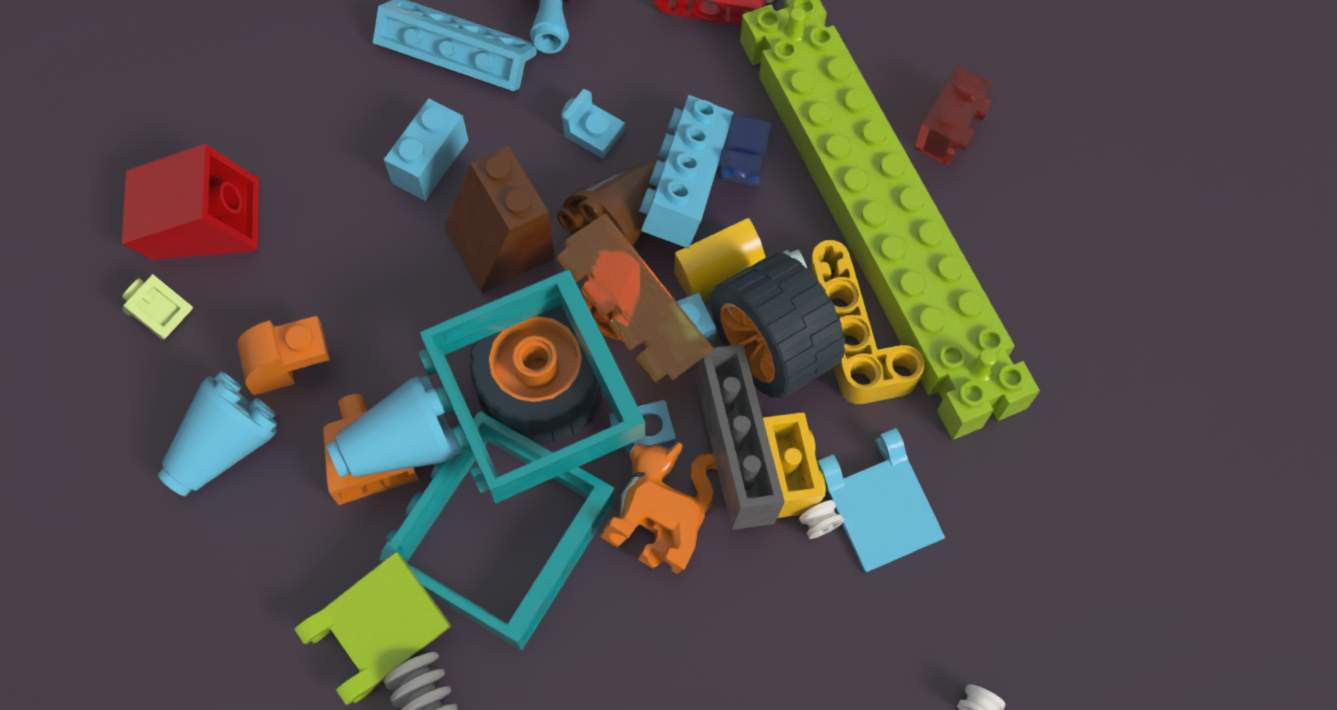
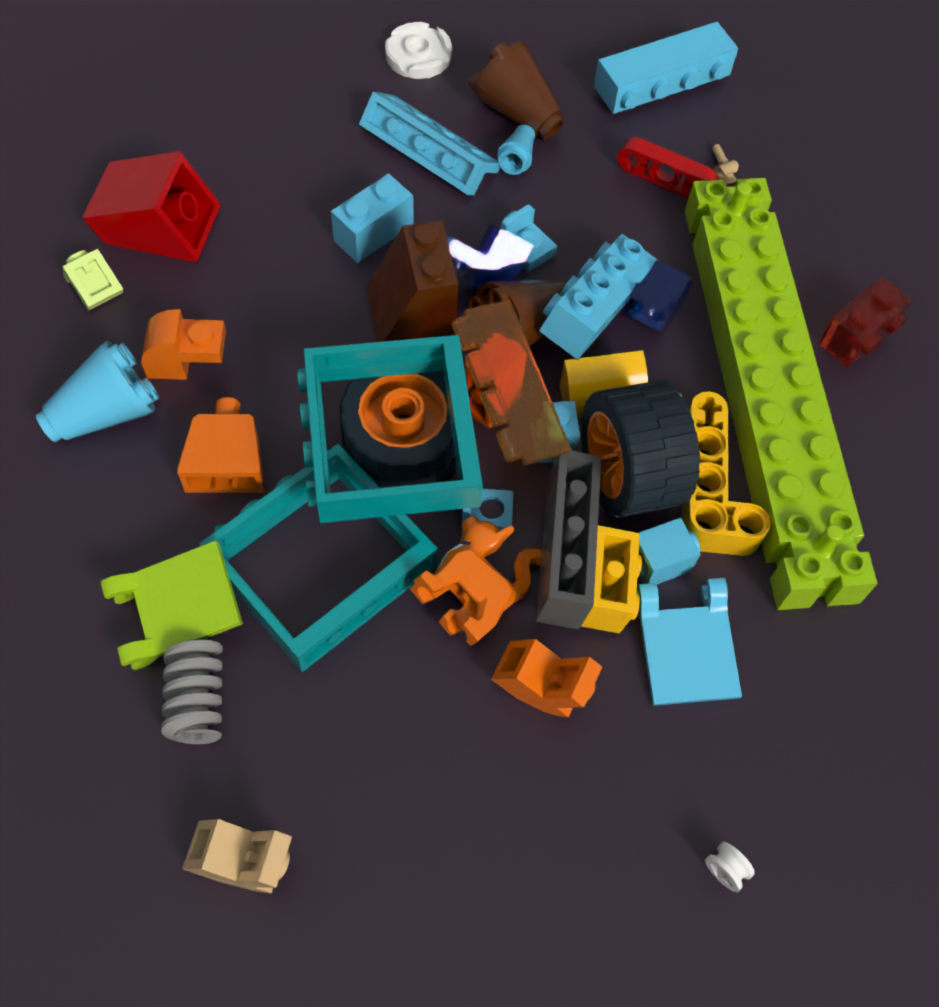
camera: 15 degrees right, 5 degrees down
(396, 433) = (251, 435): medium azure cone -> none
(569, 160) = (496, 258): none -> clear blue brick
(759, 583) = (544, 679): none -> orange brick
(821, 519) = (625, 640): white bush -> none
(834, 417) = (667, 552): none -> medium azure brick

